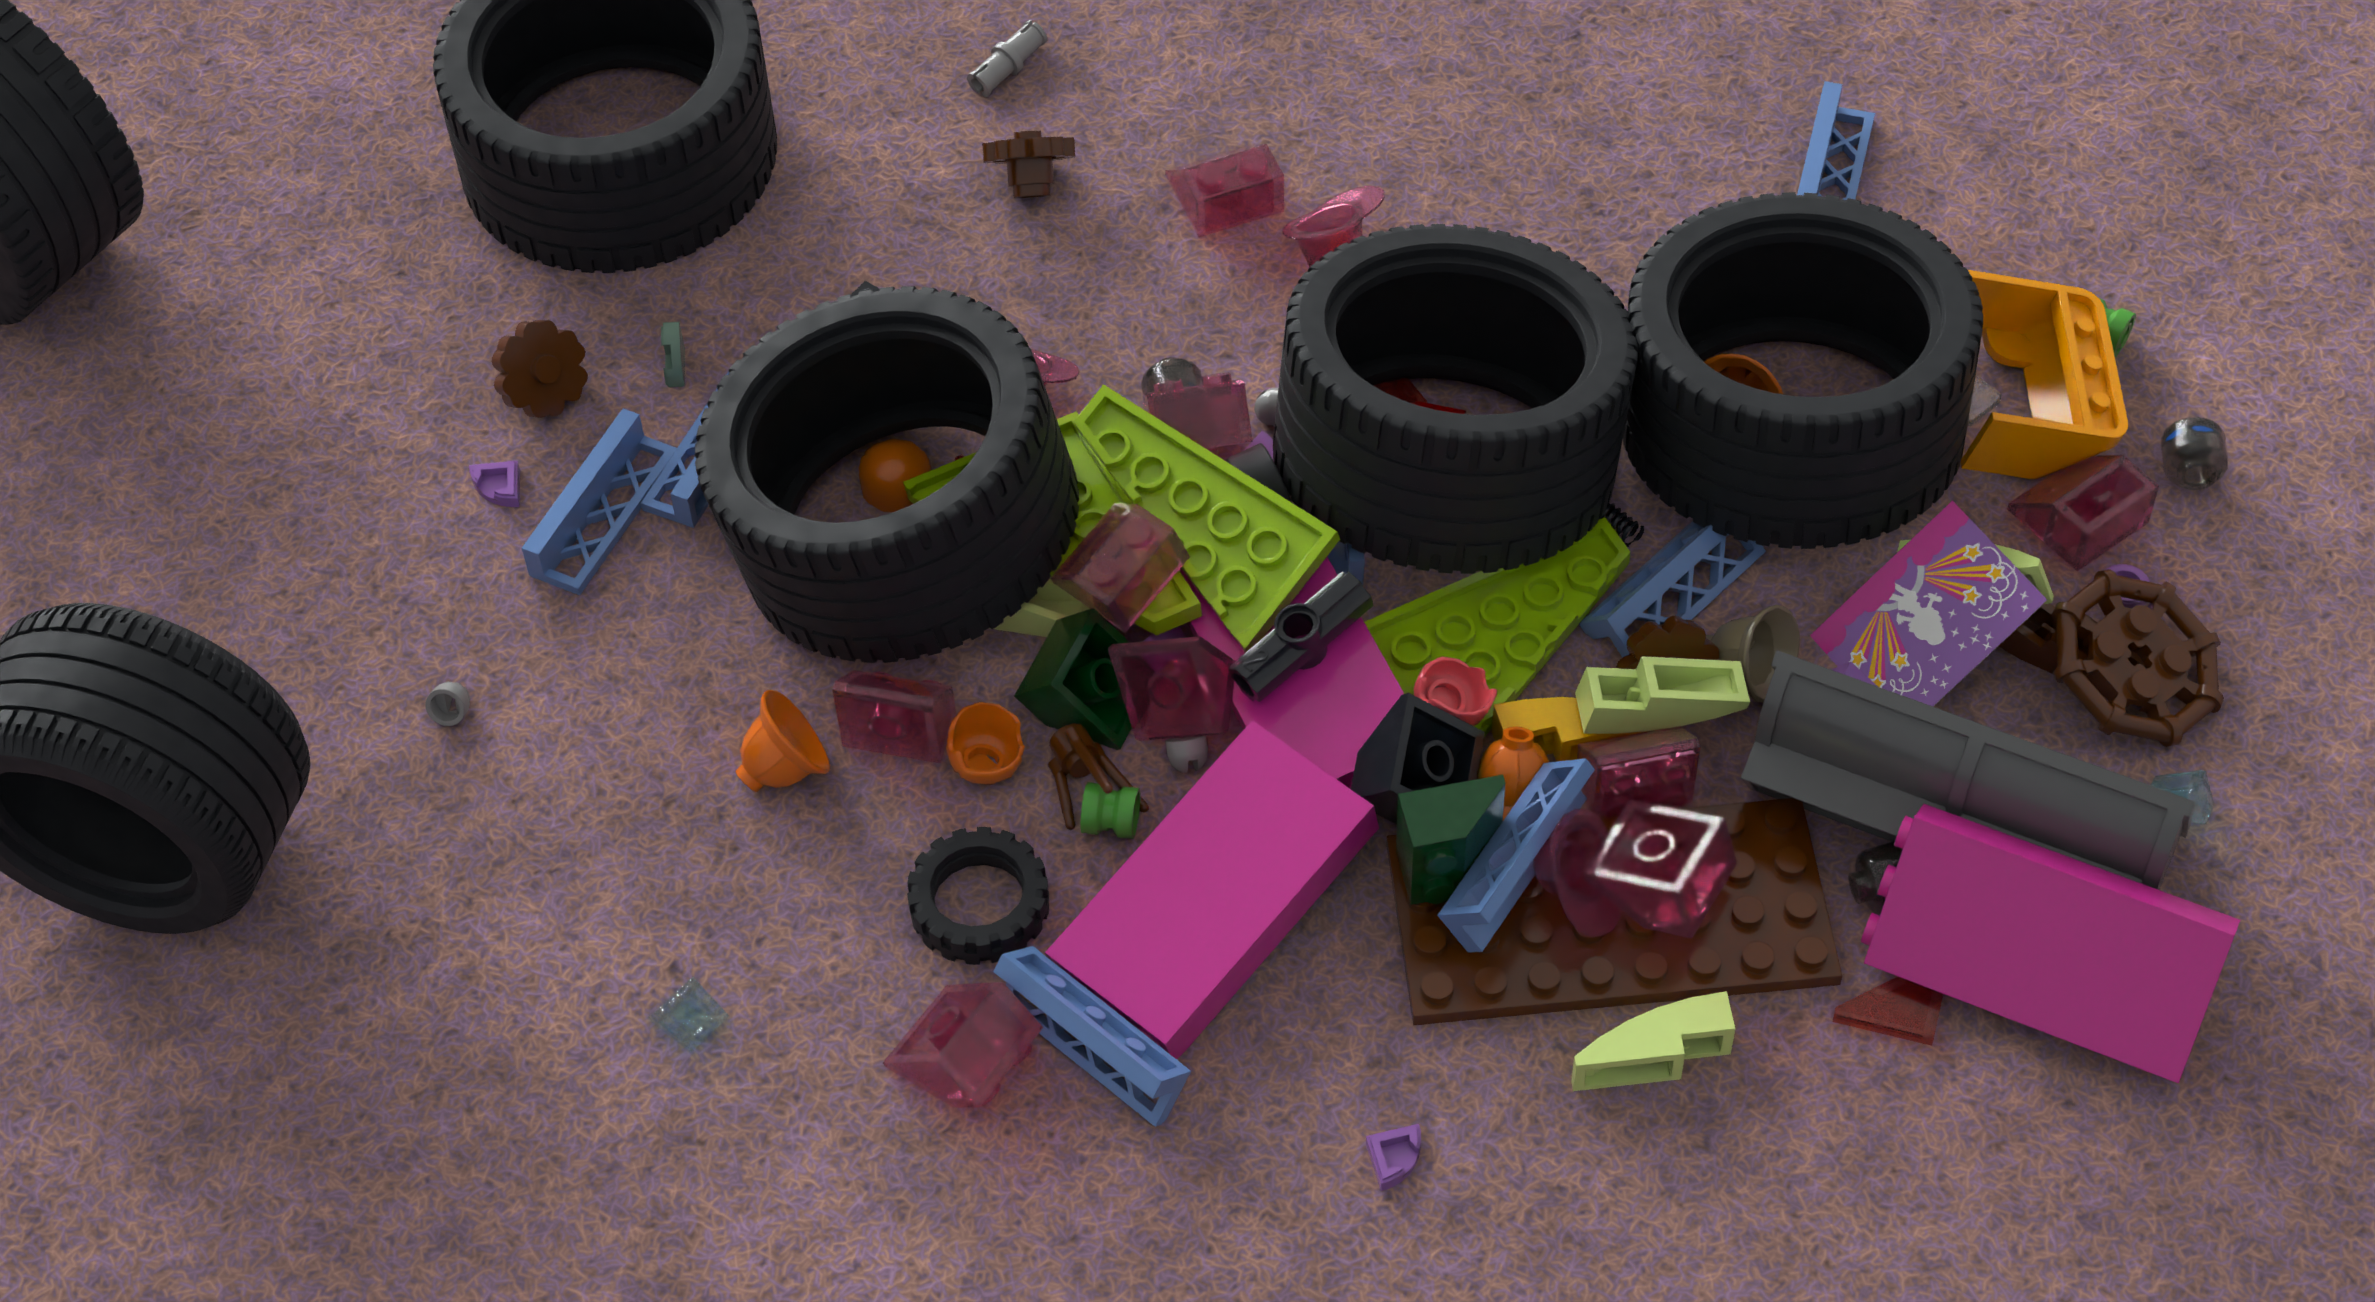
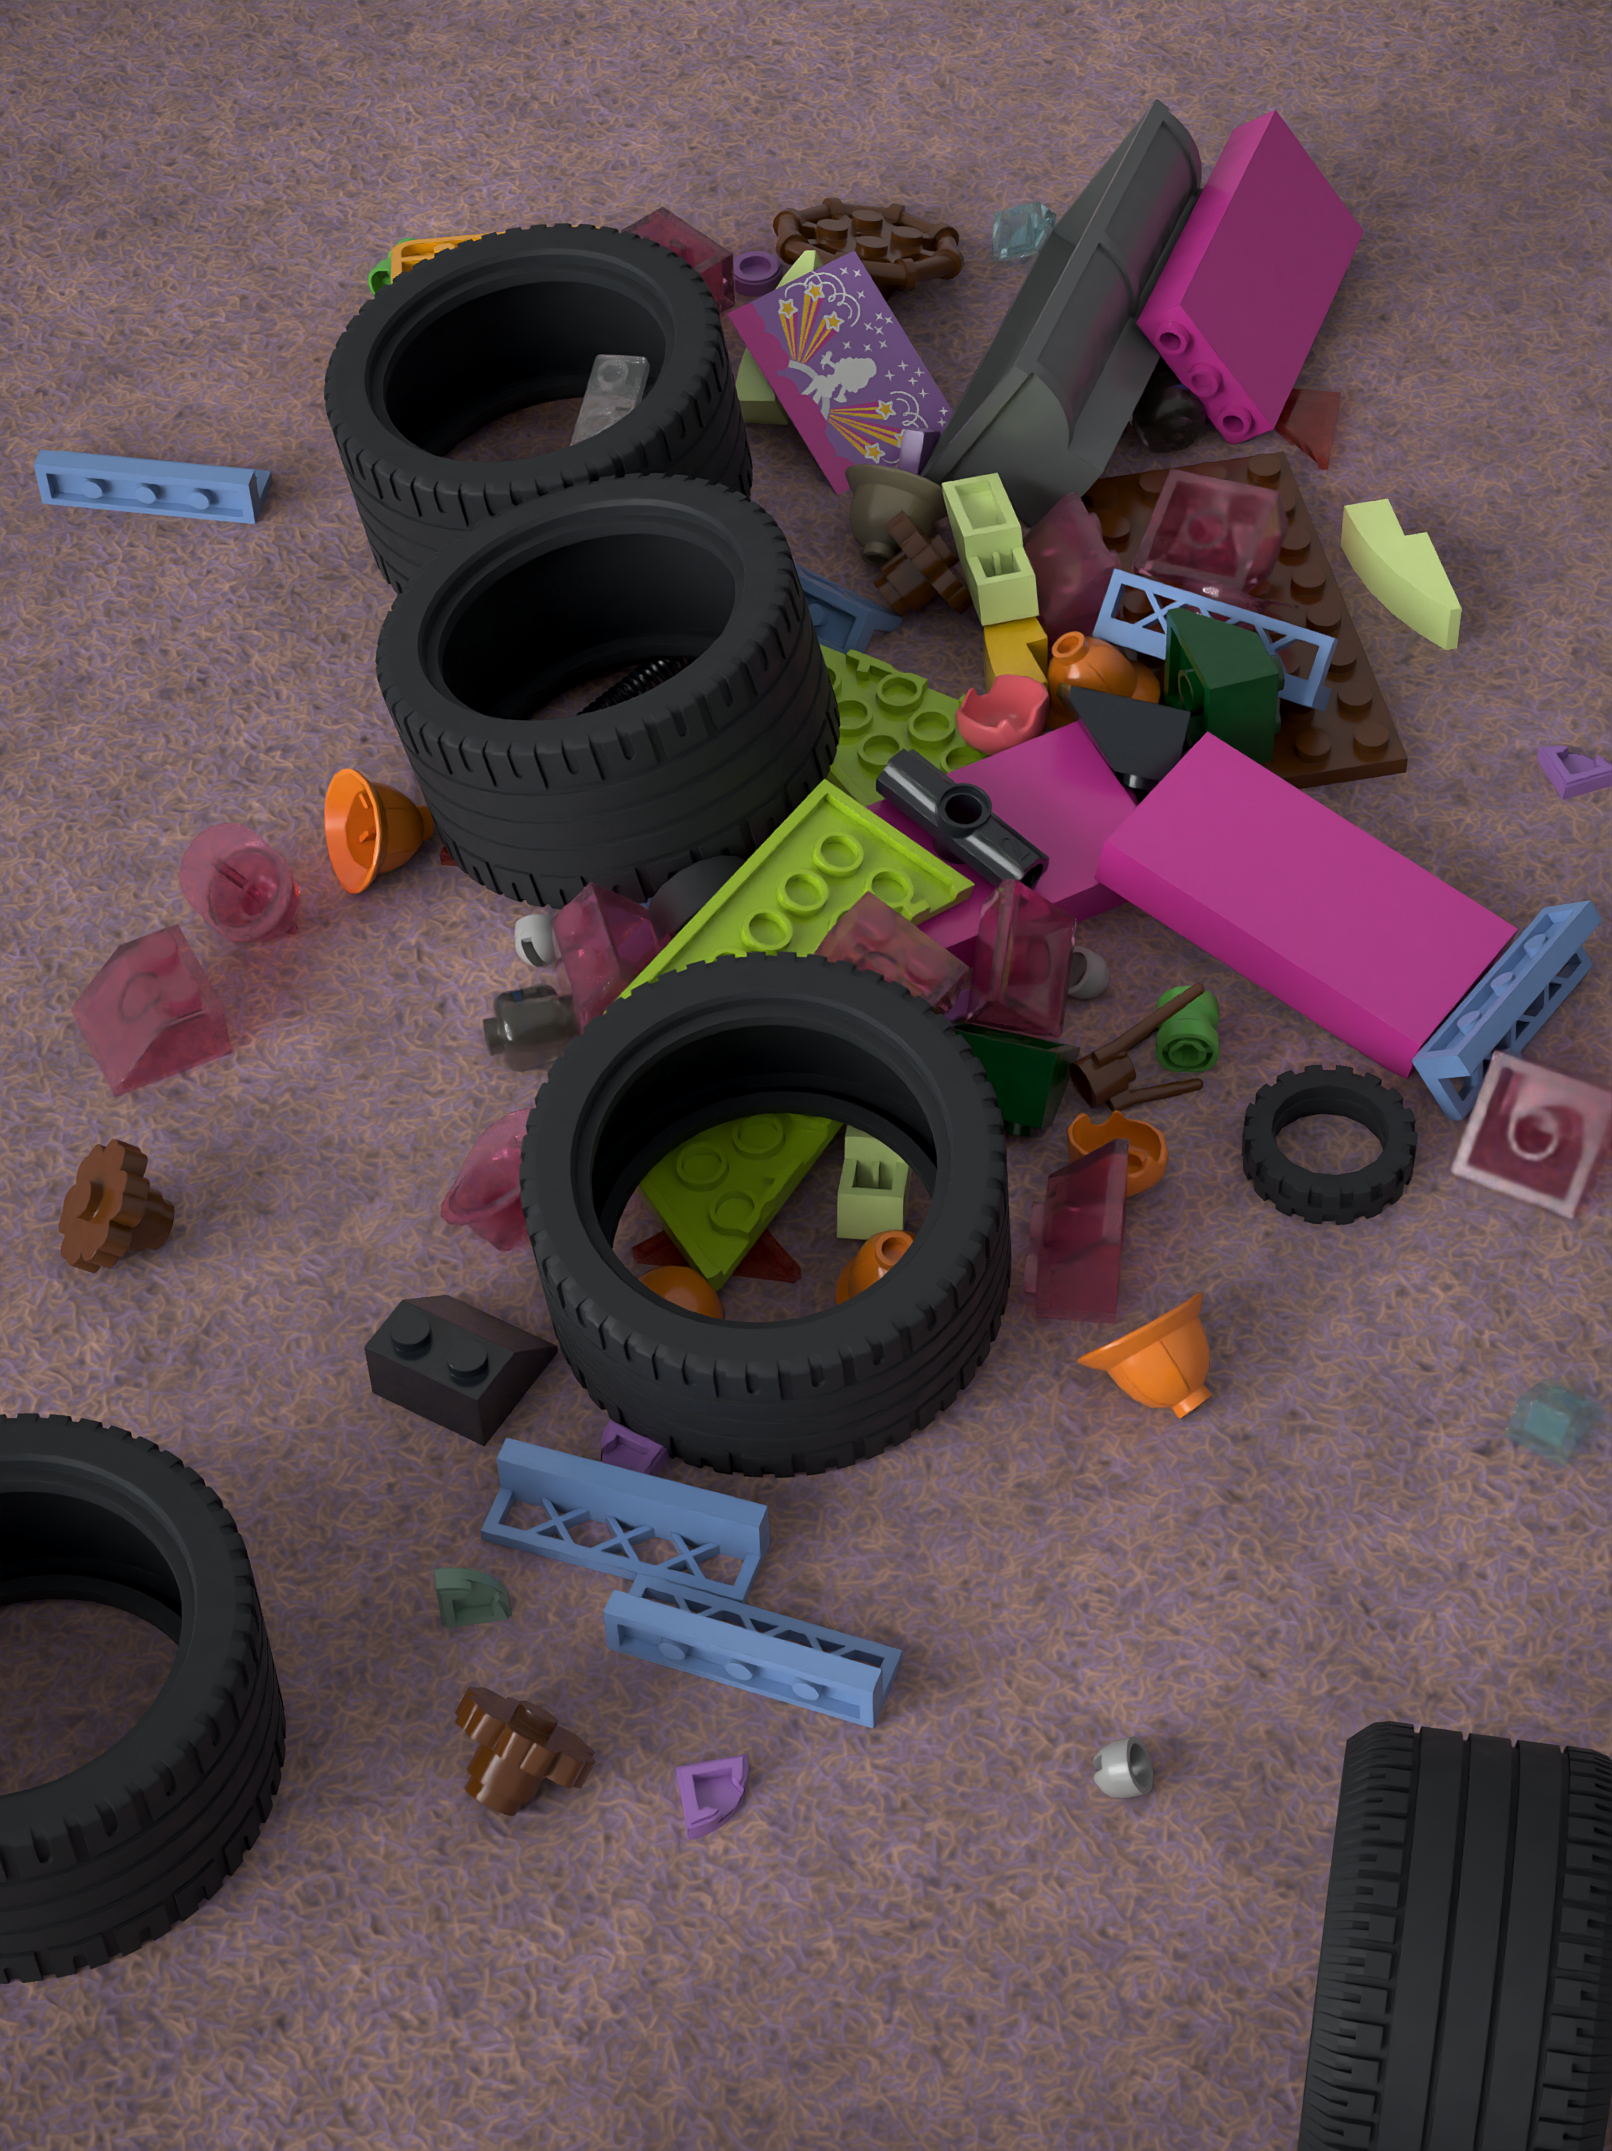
camera: 95 degrees left, 5 degrees down
(2194, 453) = (586, 202): clear smoke head -> none

